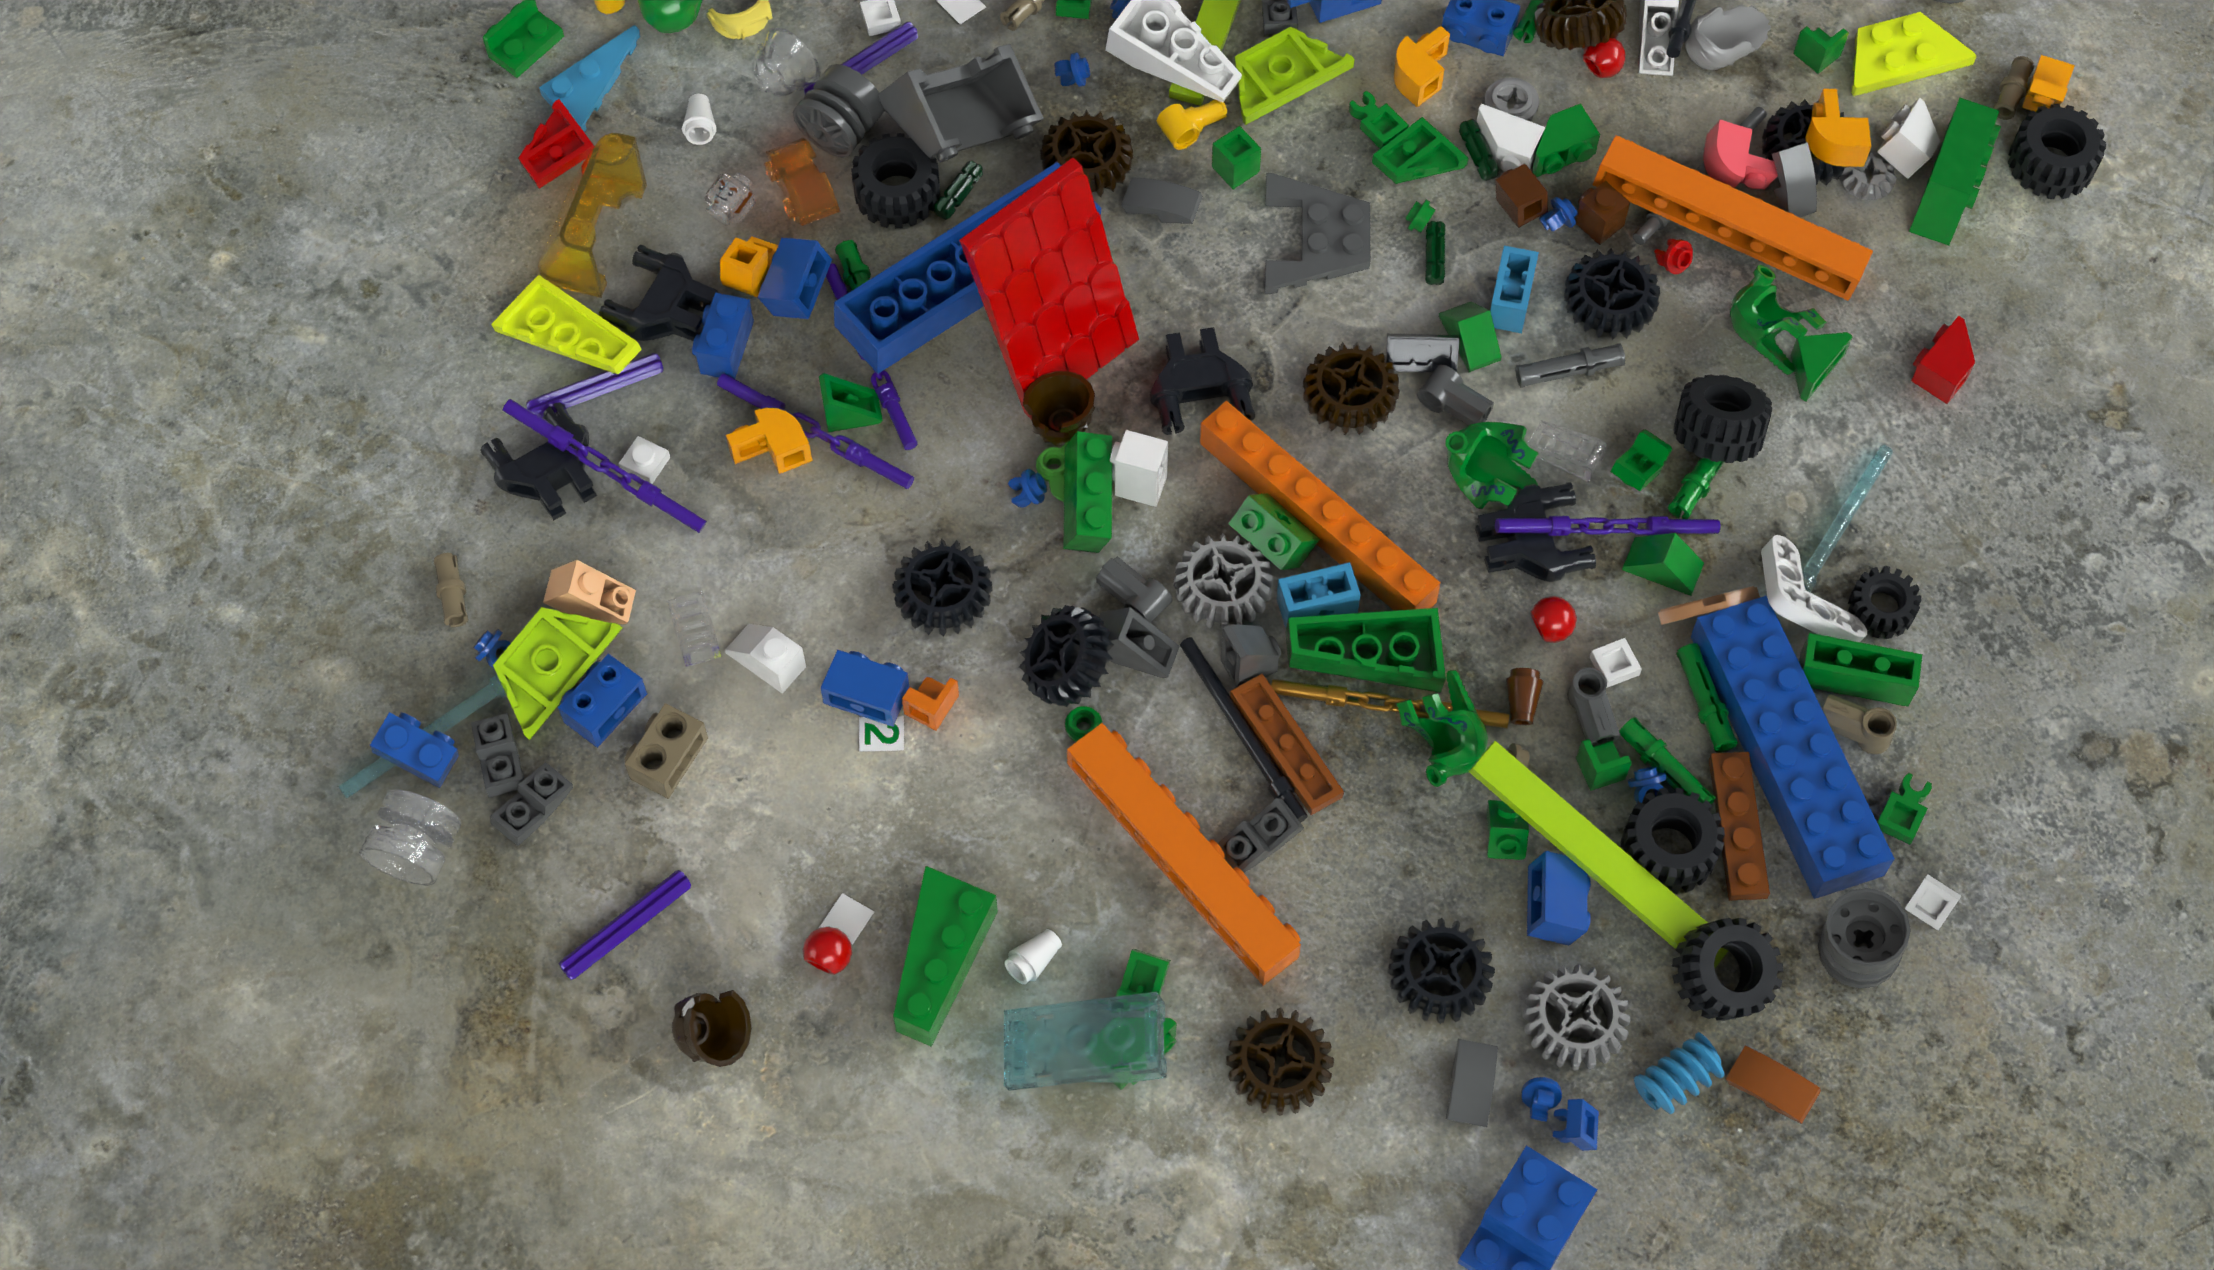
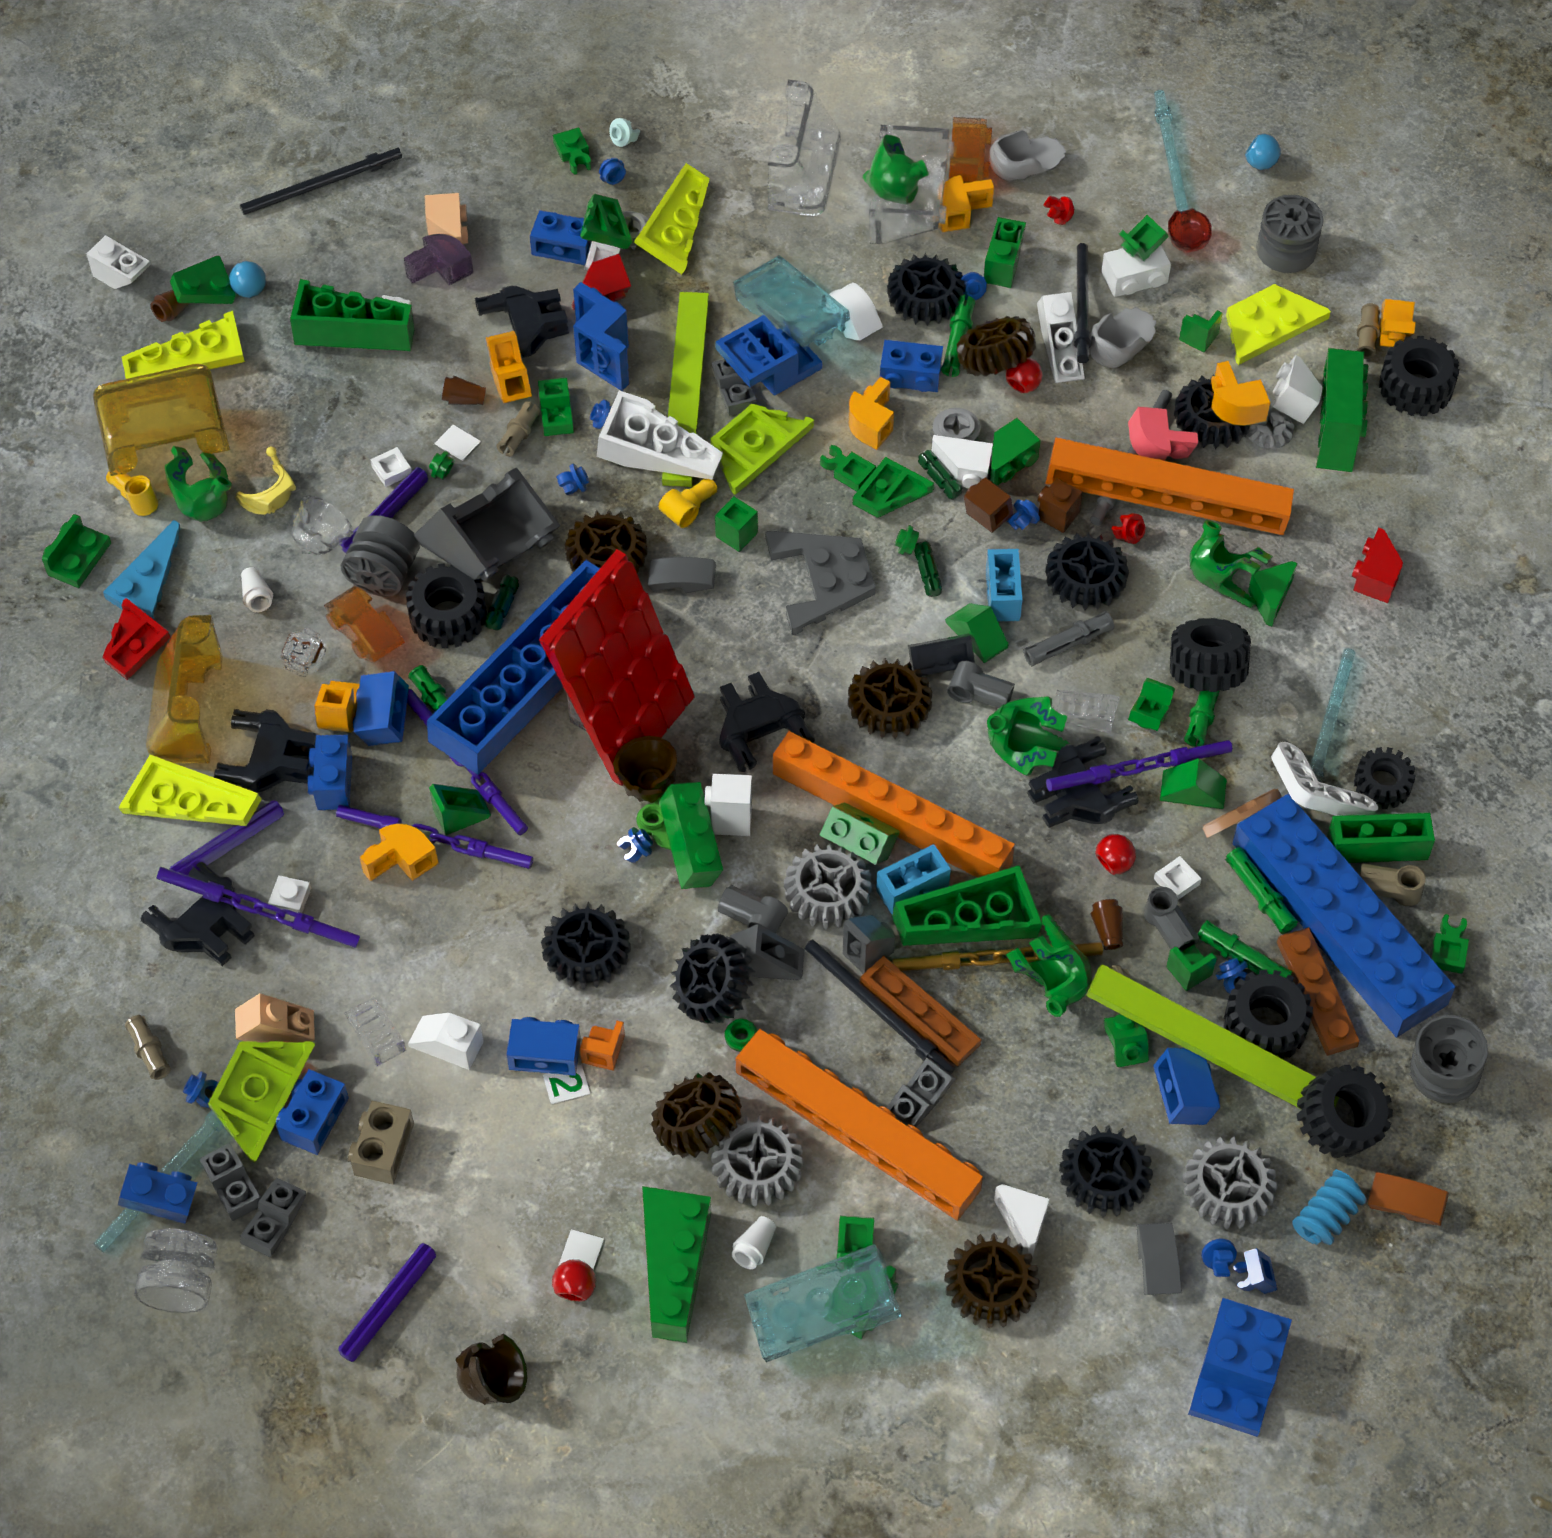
camera: 15 degrees left, 5 degrees down
(935, 24) = (441, 465): none -> green plate
(1007, 801) = (696, 1115): none -> dark brown gear
(1089, 879) = (771, 1161): none -> light grey gear
(1336, 997) = (1023, 1214): none -> white slope
(1797, 180) = (1215, 444): dark grey slope -> none
(1932, 902) = (1495, 1016): white plate -> none

